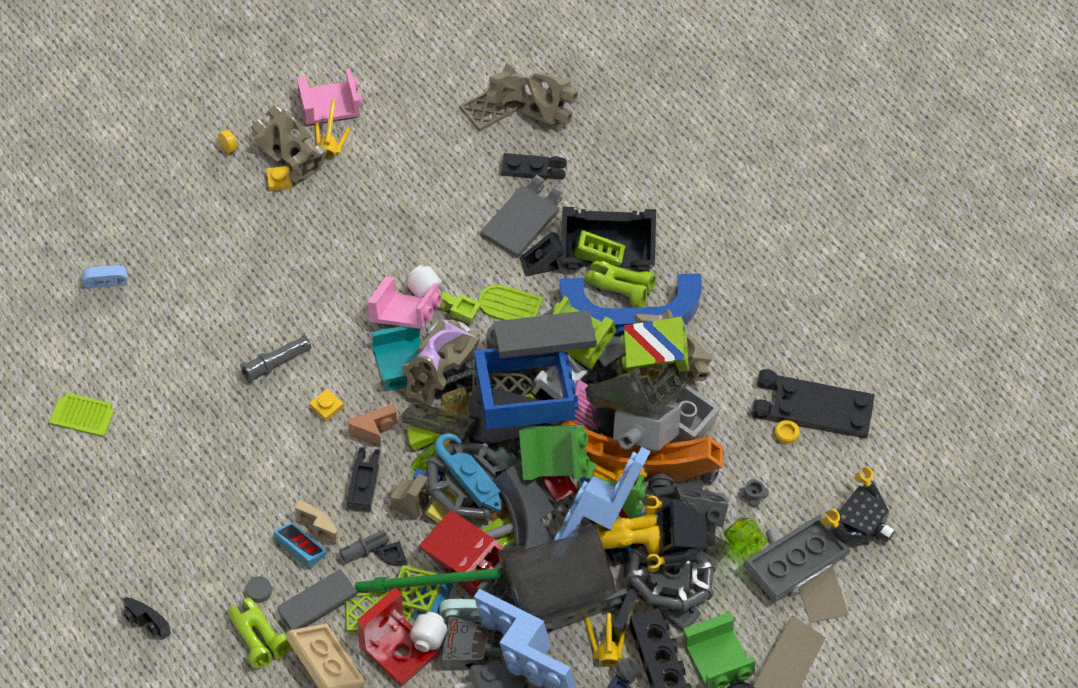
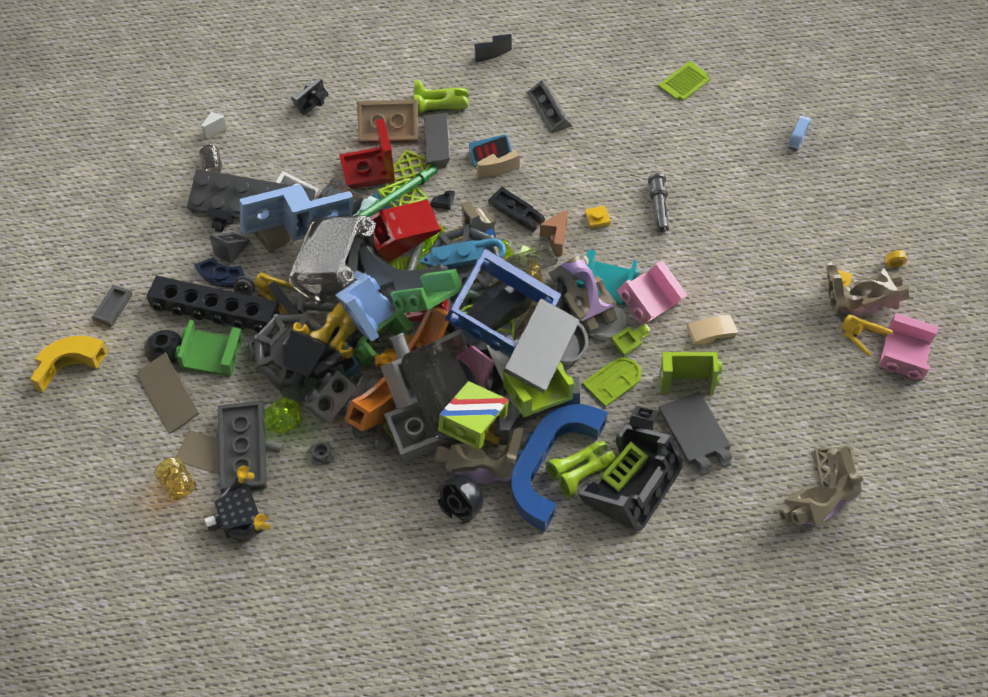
camera: 125 degrees right, 0 degrees up
(200, 522) = (549, 107): none -> dark grey slope
(259, 589) = (472, 116): dark grey tile -> none
(363, 546) = (461, 184): dark grey axle -> none
(404, 249) = (708, 329): none -> tan slope
(421, 280) = (668, 324): white head -> none
(428, 631) = (358, 177): white head -> none
(482, 253) = (689, 366): none -> lime panel
(529, 166) = (749, 466): black hinge -> none
(721, 345) = (460, 493): none -> black cylinder
(787, 432) = (356, 511): yellow tile -> none
(815, 405) = (364, 548): black hinge -> none
(870, 588) = (175, 478): none -> clear yellow wheel

